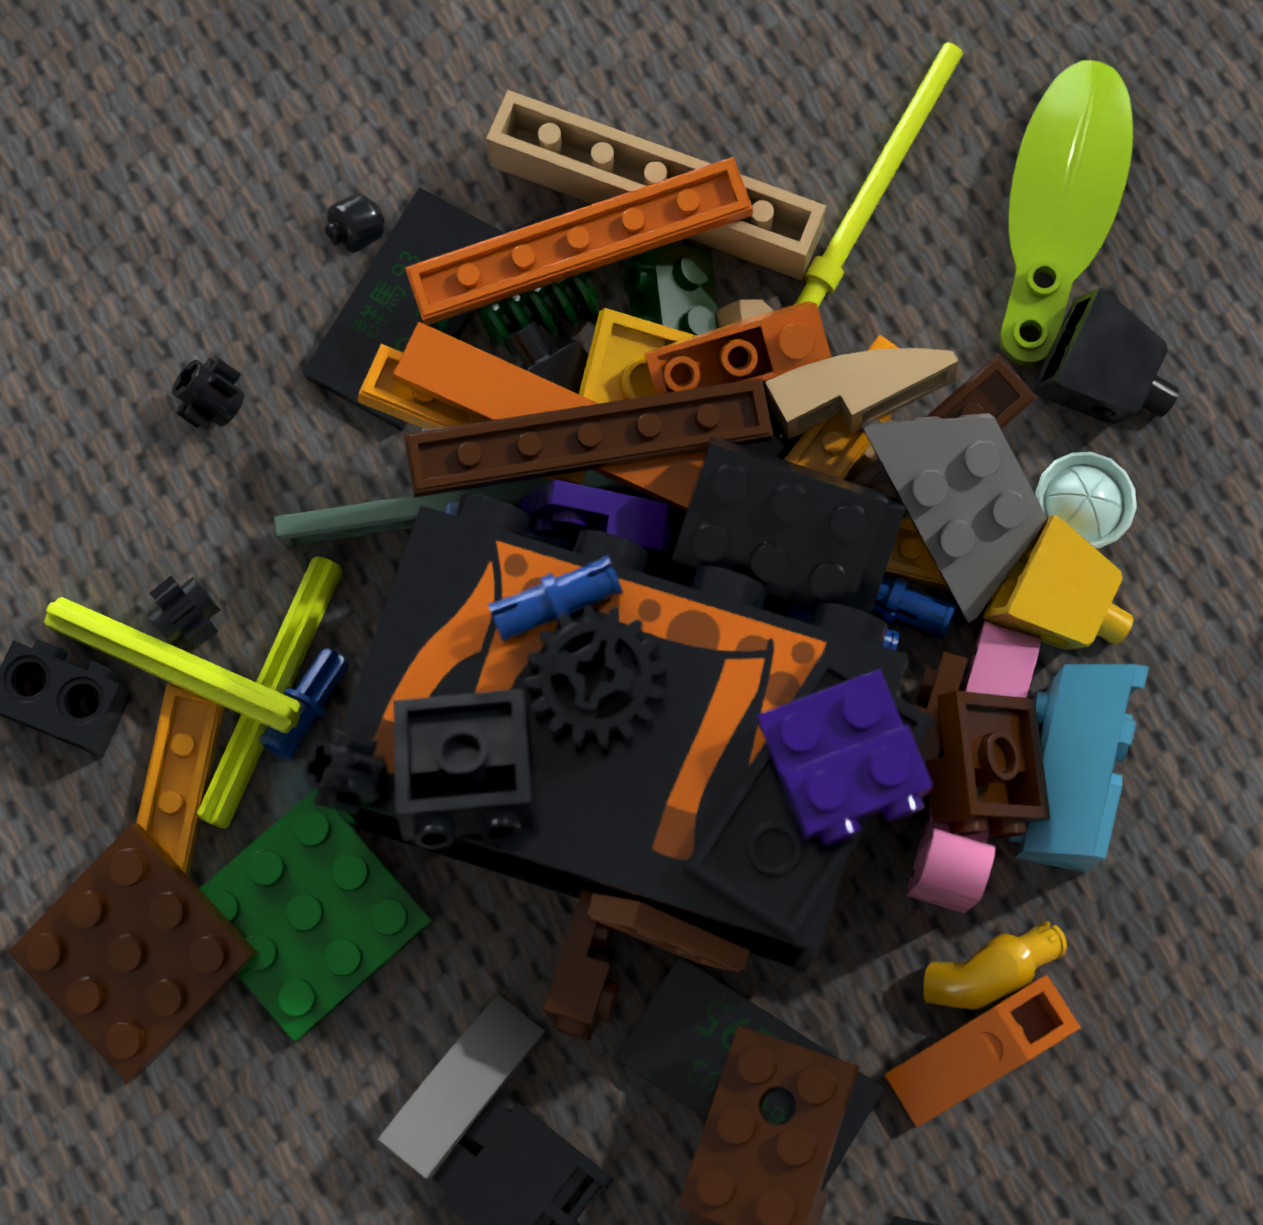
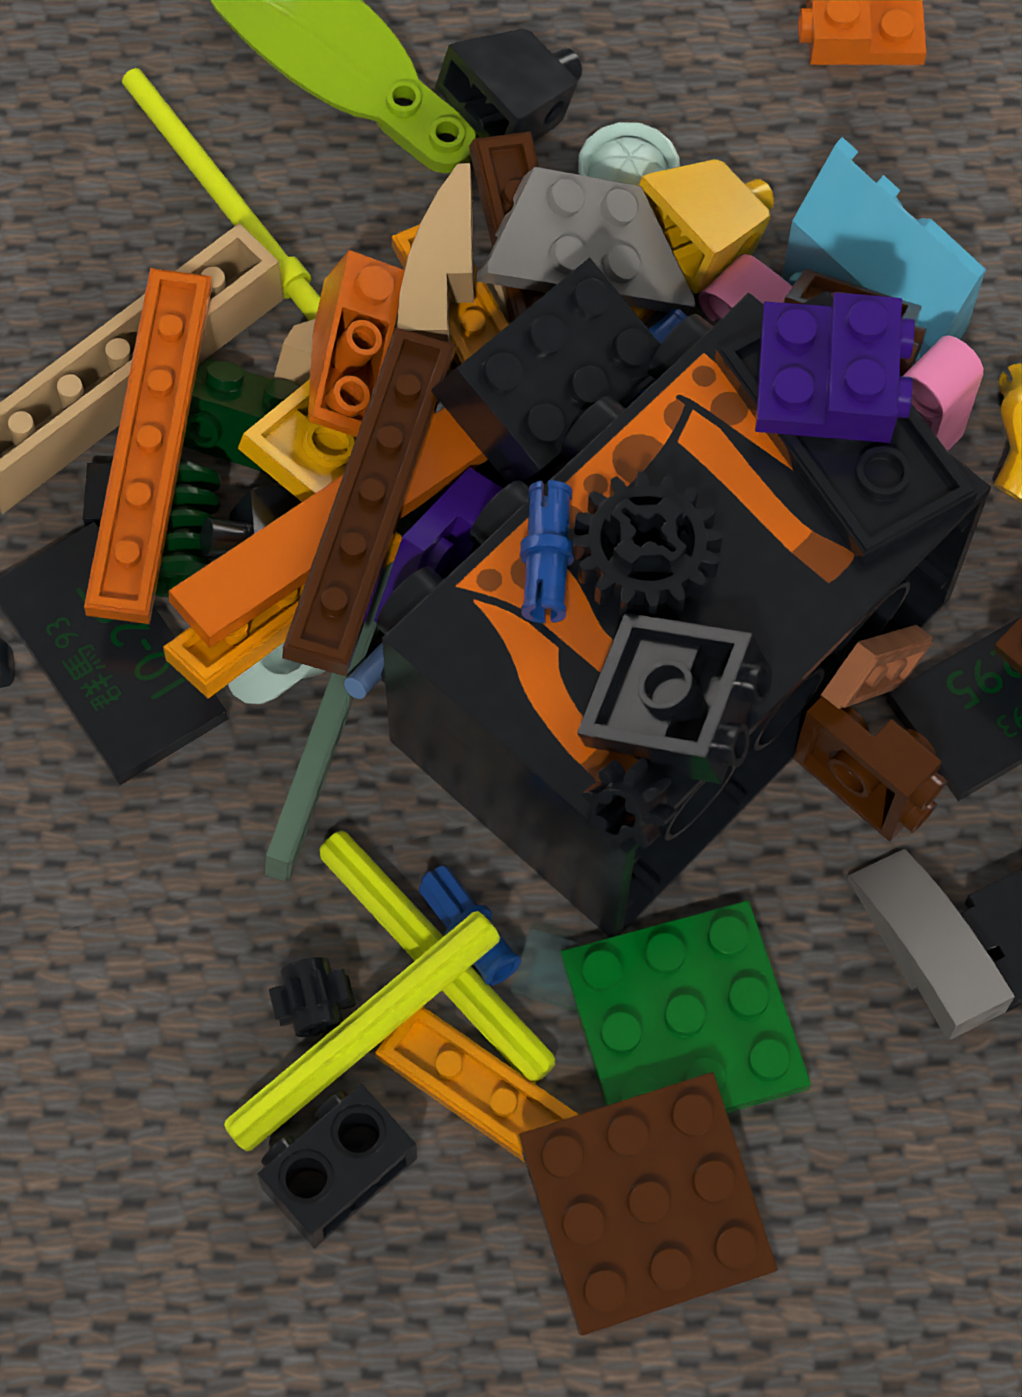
camera: 70 degrees left, 10 degrees down
(208, 393) = (90, 873): black gear -> none

